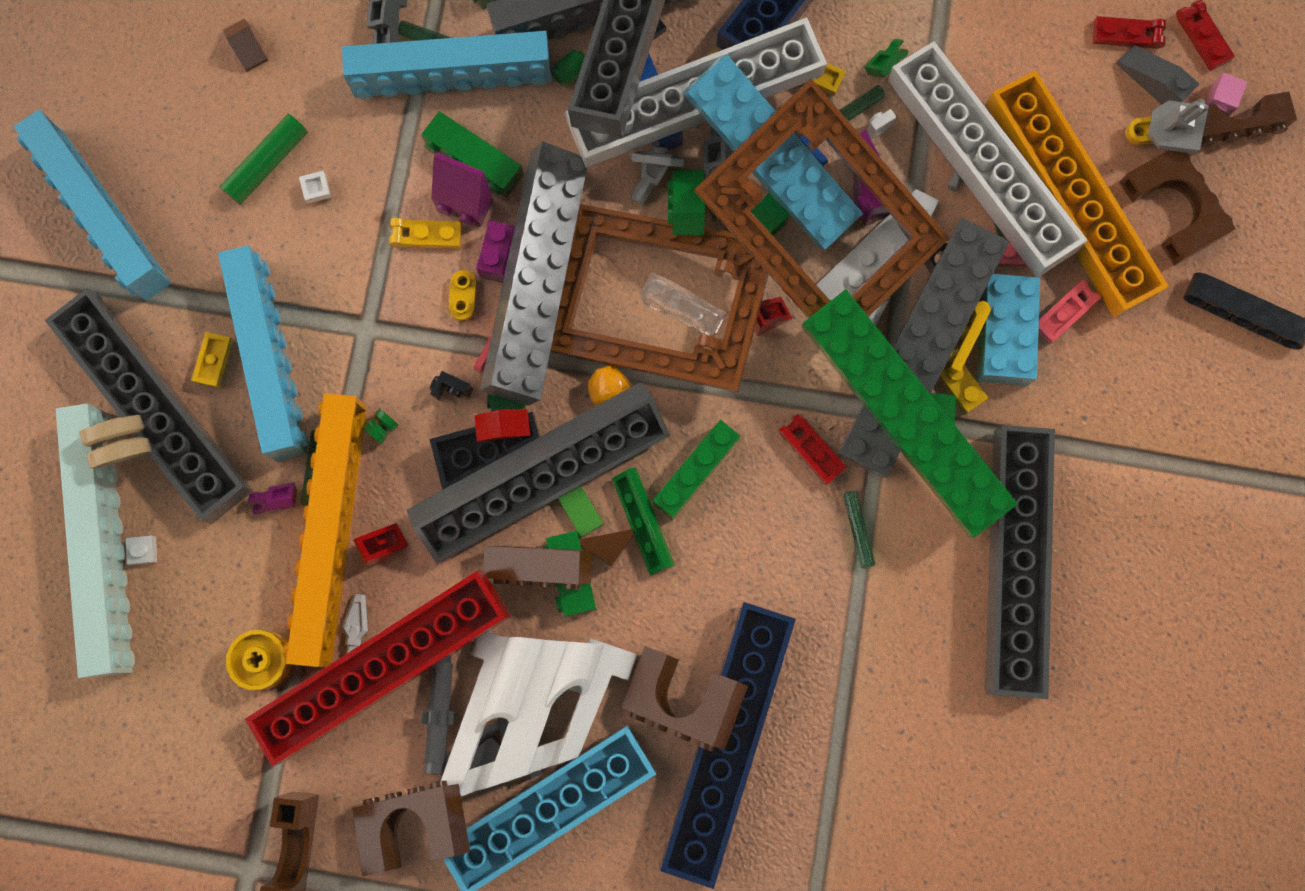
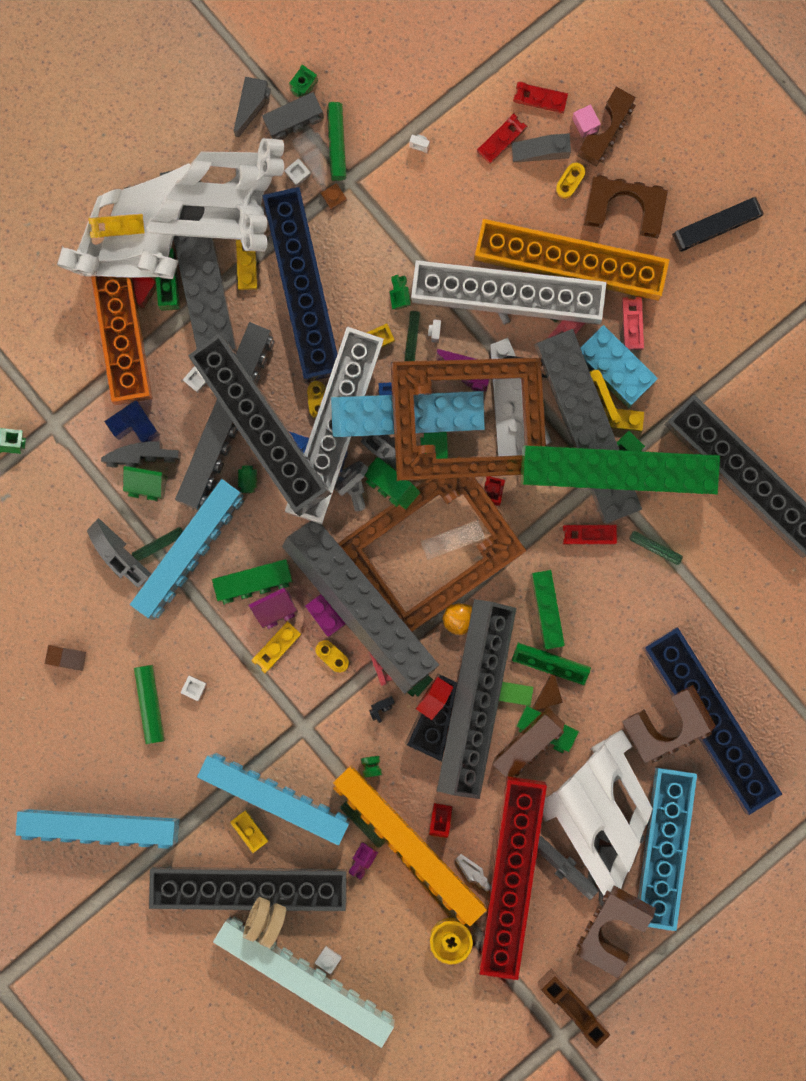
camera: 45 degrees left, 5 degrees up
(1178, 126) = (583, 167): light grey piece -> none

